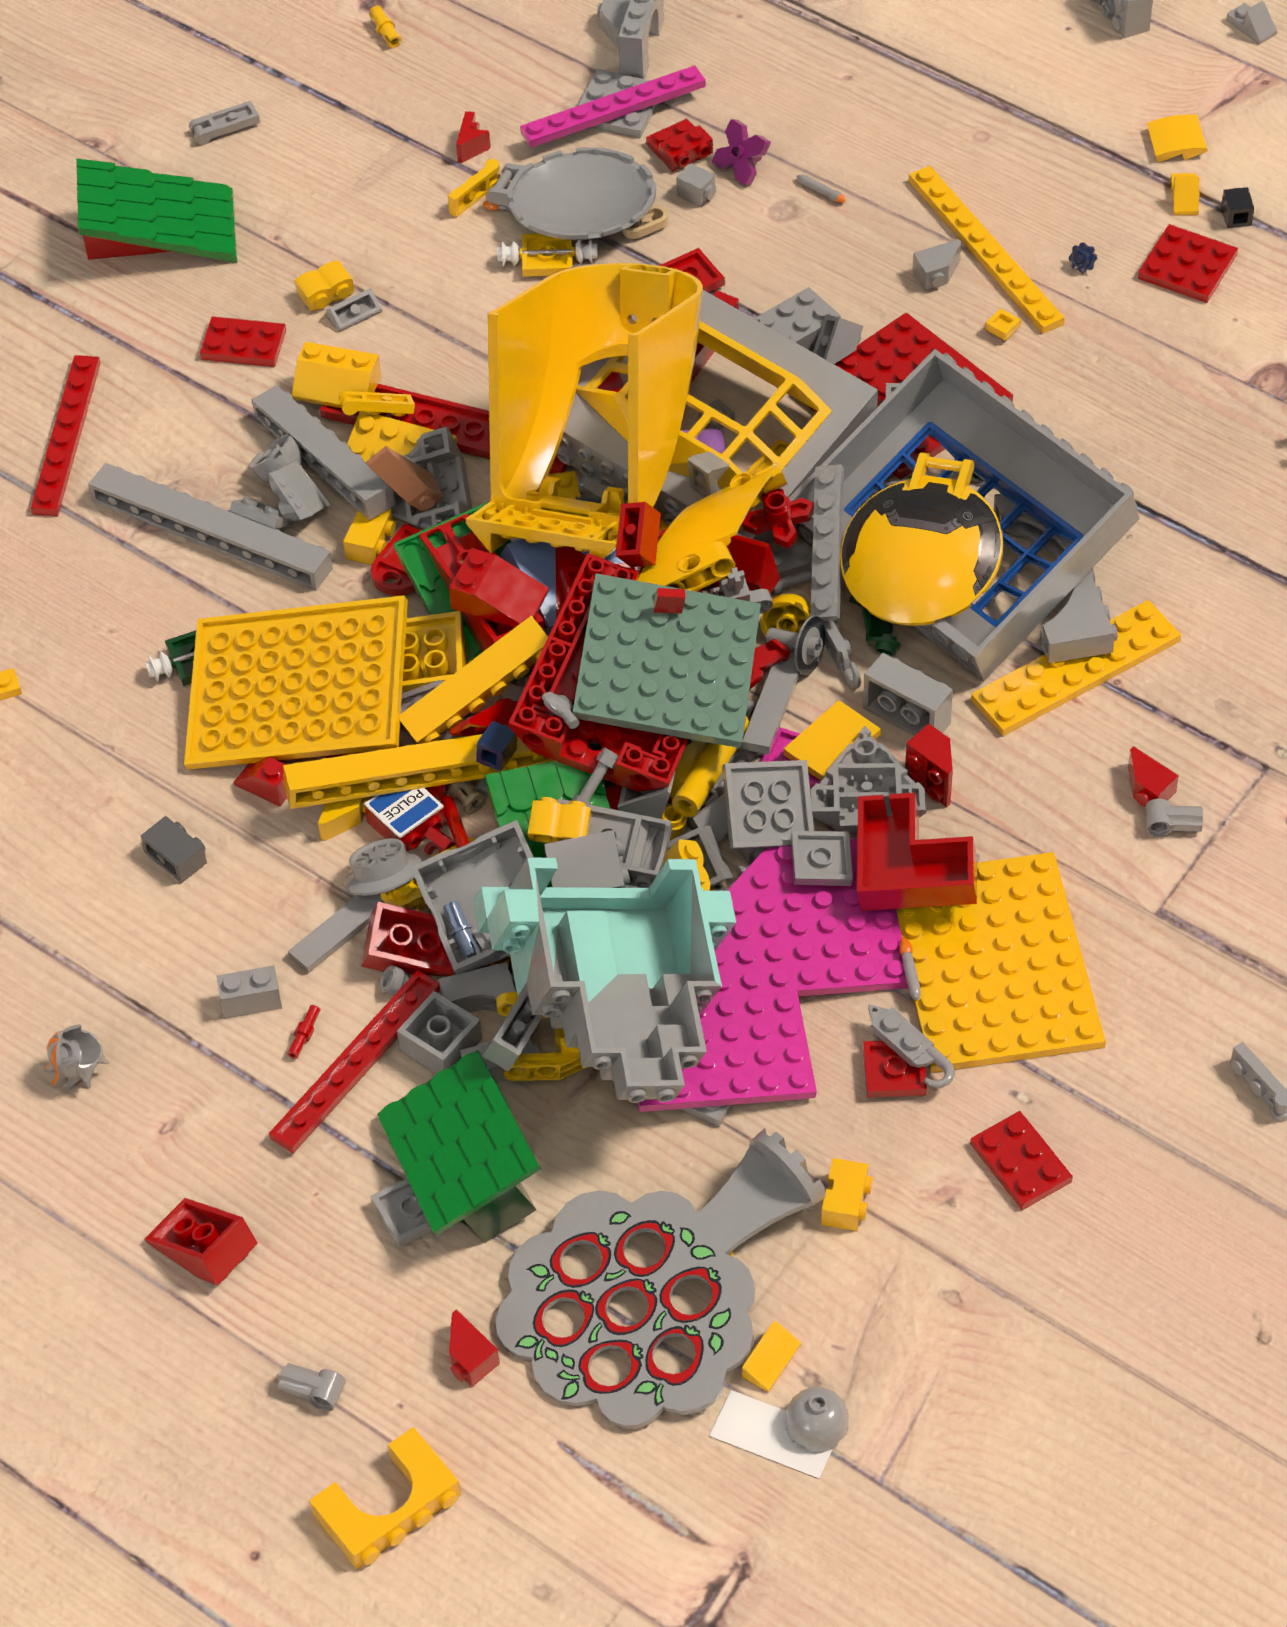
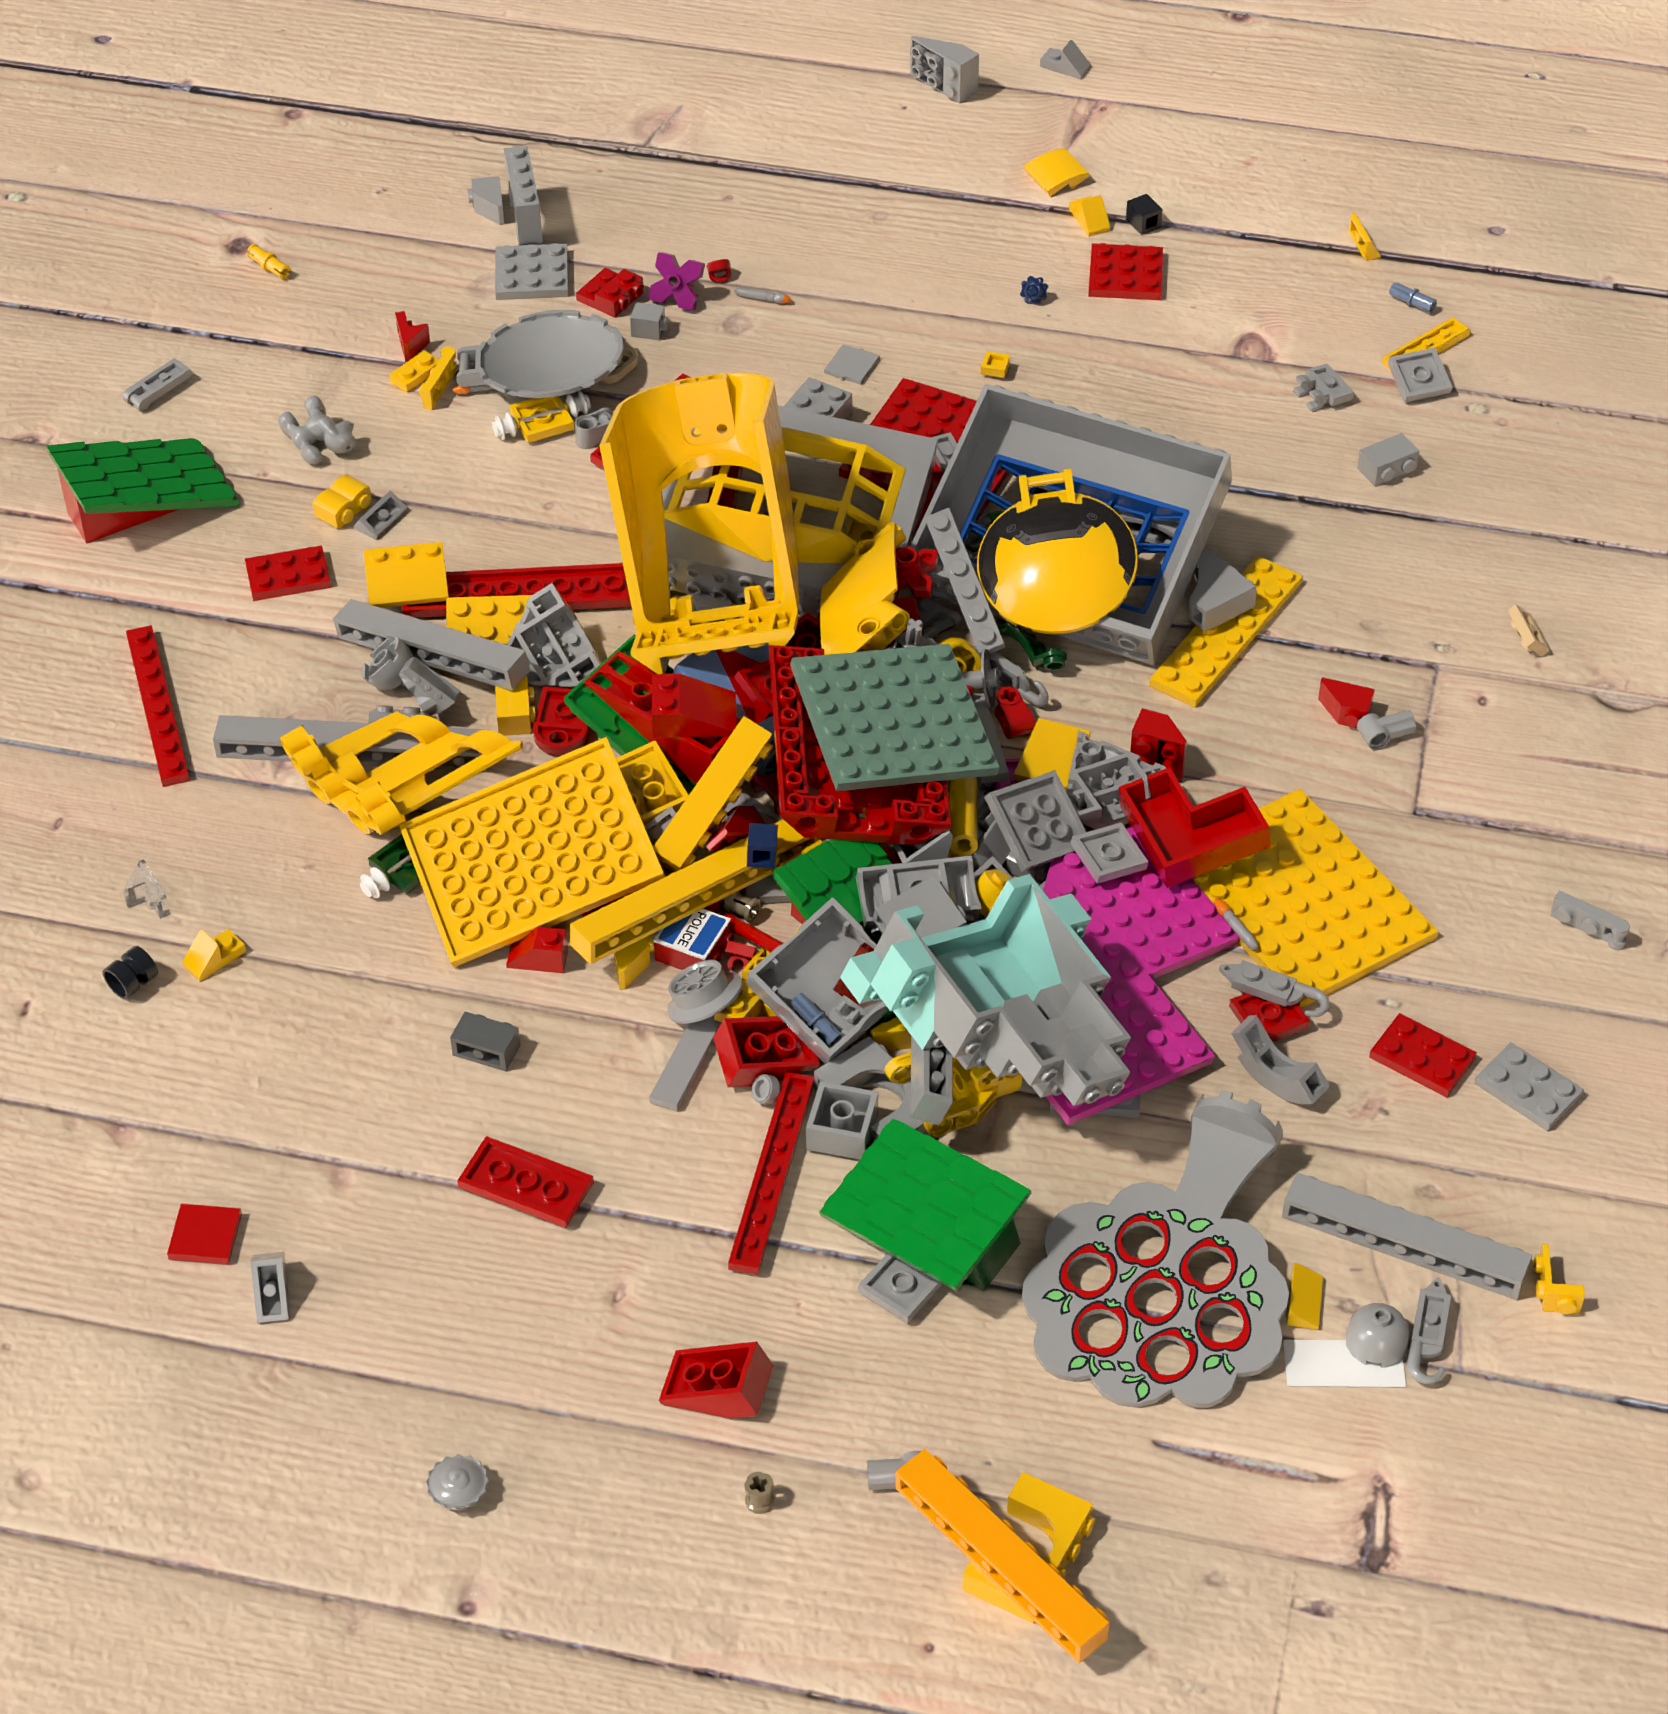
camera: 25 degrees left, 5 degrees down
(74, 1055) = (500, 1256): light grey hair -> none
(139, 993) = (525, 1181): none -> red plate
(180, 1365) = (759, 1492): none -> dark tan bush
(222, 580) = (399, 786): none -> yellow panel
(249, 992) = (635, 1143): light grey brick -> none
(303, 1031) = (705, 1163): red bar -> none
(339, 206) = (318, 427): none -> light grey animal
(346, 1499) = (1003, 1555): none -> light orange brick
(376, 402) = (460, 586): yellow plate -> none
(406, 478) = (536, 640): nougat slope -> none
(455, 175) = (413, 371): none -> yellow plate
(470, 1351) = (1029, 1388): red slope -> none
(558, 822) = (871, 887): yellow brick -> none
(561, 707) = (823, 785): light grey rock -> none
(606, 759) = (882, 820): light grey bar -> none
(612, 106) = (531, 274): dark pink plate -> none
(638, 534) = (808, 614): red brick -> none
(669, 600) = (876, 660): red tile -> none
(705, 471) = (827, 552): light grey slope -> none
(792, 147) = (717, 267): none -> red tile
(819, 687) = (1013, 713): none -> red piece
(837, 338) = (860, 407): light grey slope -> none
(845, 1195) = (1298, 1142): yellow brick -> none
(867, 283) = (851, 364): none -> light grey piece
(868, 1432) = (1429, 1330): none -> light grey plate
(869, 1130) = (1275, 1071): none -> light grey arch
(900, 1333) = (1407, 1236): none -> light grey brick
(906, 696) = (1100, 696): light grey brick -> none
(936, 264) = (906, 330): light grey slope -> none
(986, 249) = (942, 307): yellow plate -> none
(1006, 1446) = (1555, 1297): none -> yellow bracket
(1106, 1228) = (1529, 1086): none -> light grey plate

